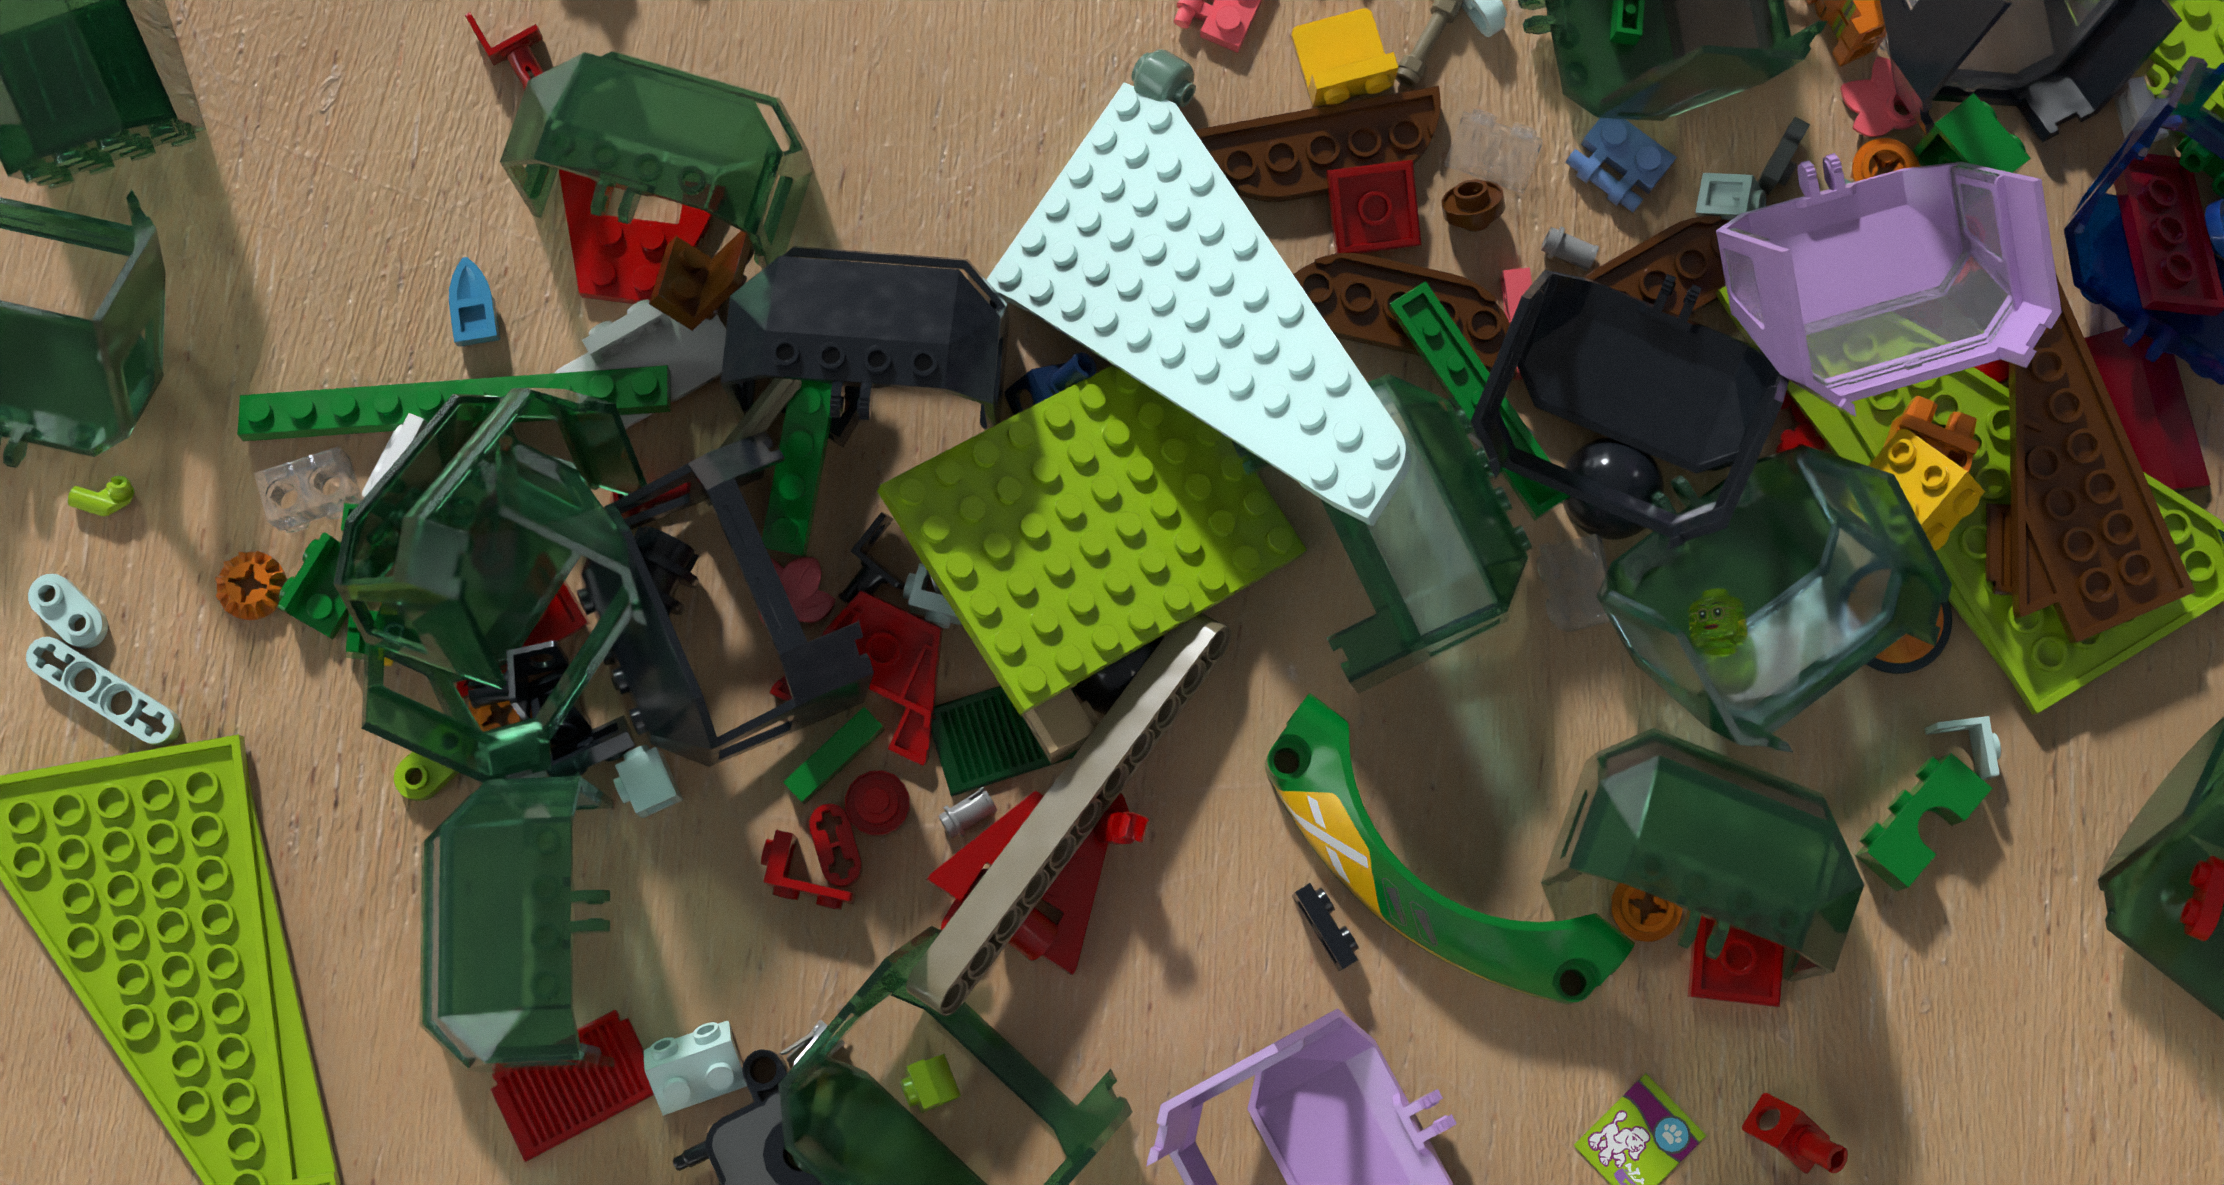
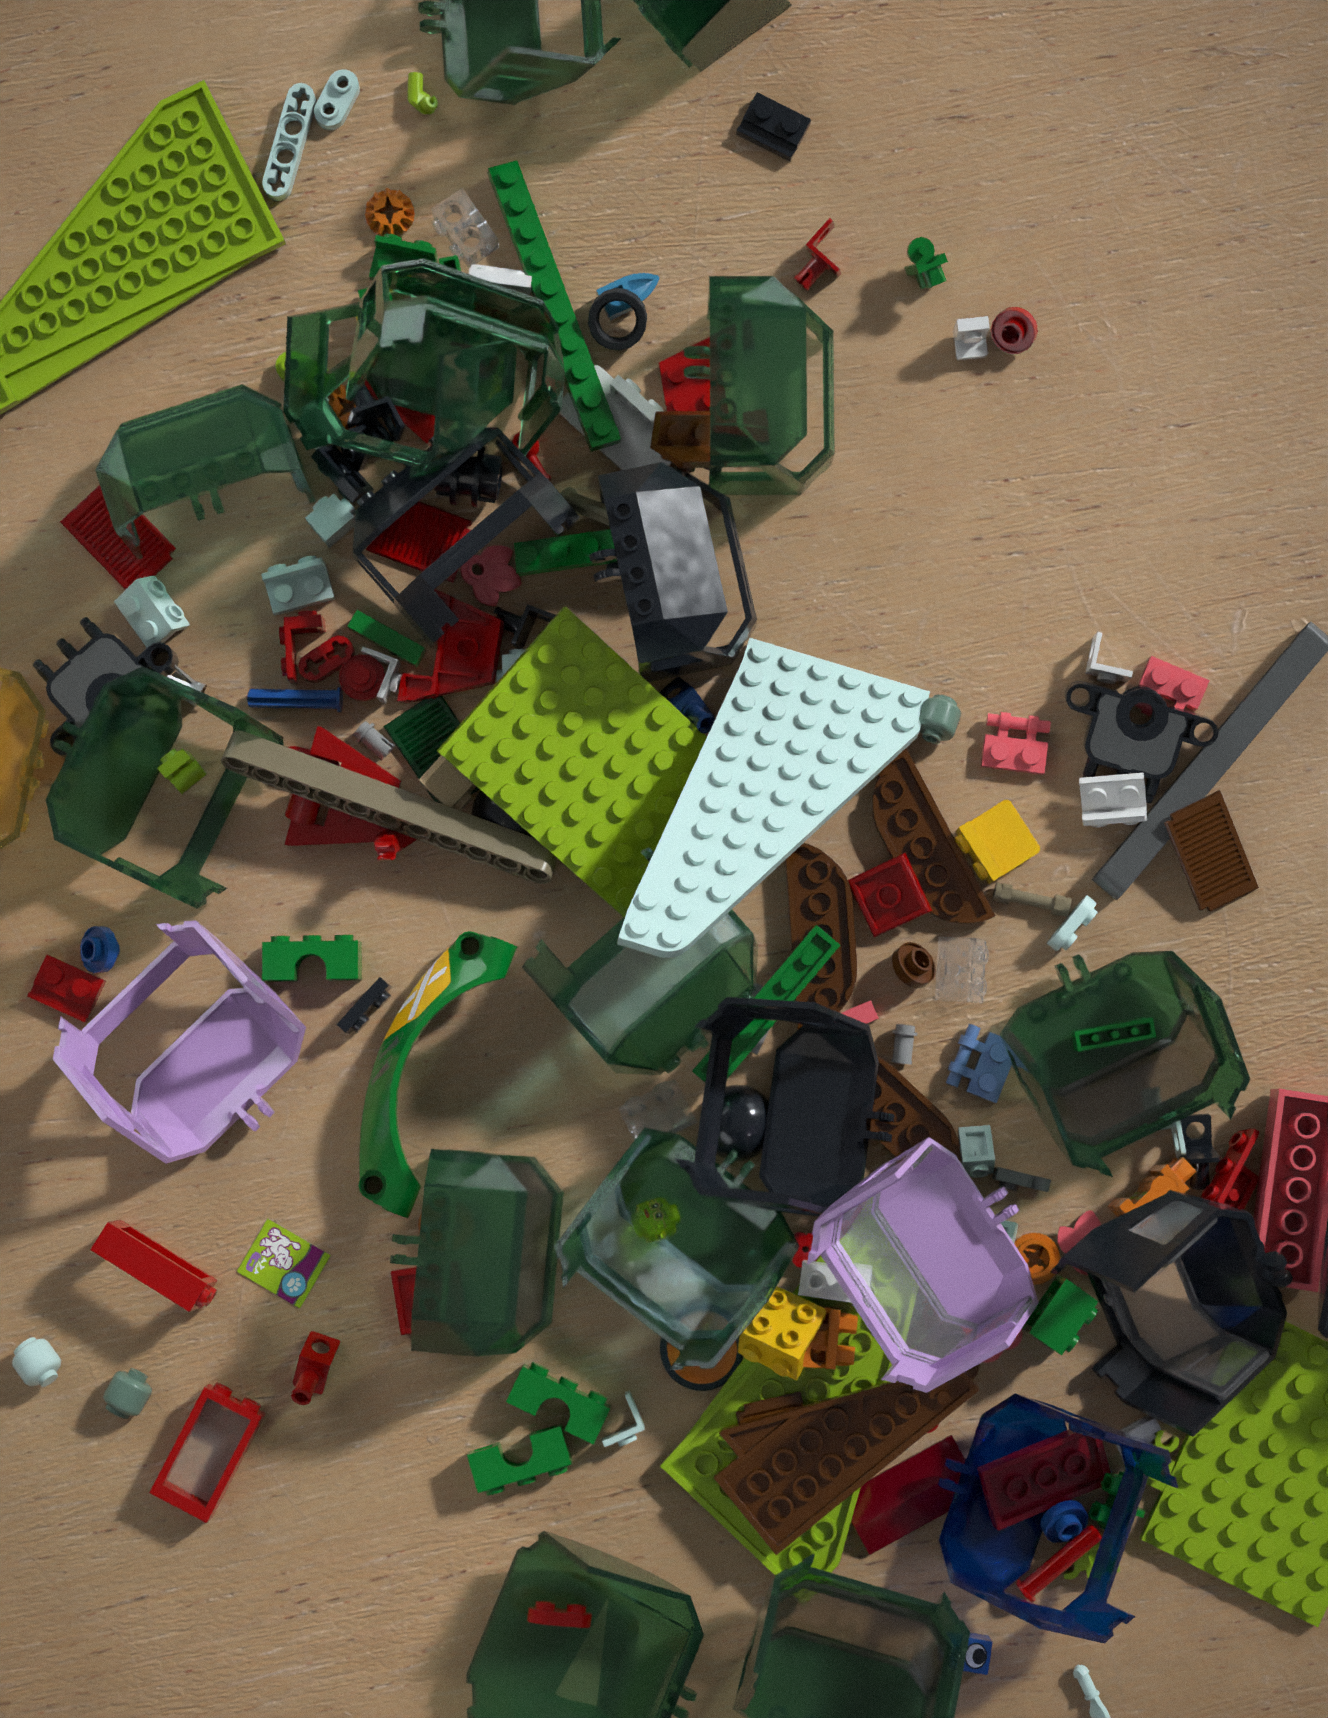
camera: 75 degrees right, 5 degrees up
(314, 57) = (773, 126): none -> black plate
(530, 305) = (606, 340): none -> black tyre
(722, 854) = (298, 585): none -> light aqua bracket
(726, 657) = (421, 537): none -> red window
(877, 902) = (296, 699): none -> blue axle
(891, 762) = (392, 677): none -> white bracket
(1248, 940) = (283, 957): none -> green arch
(1860, 435) = (820, 1282): none -> white brick
(1989, 857) = (493, 1470): none -> green arch

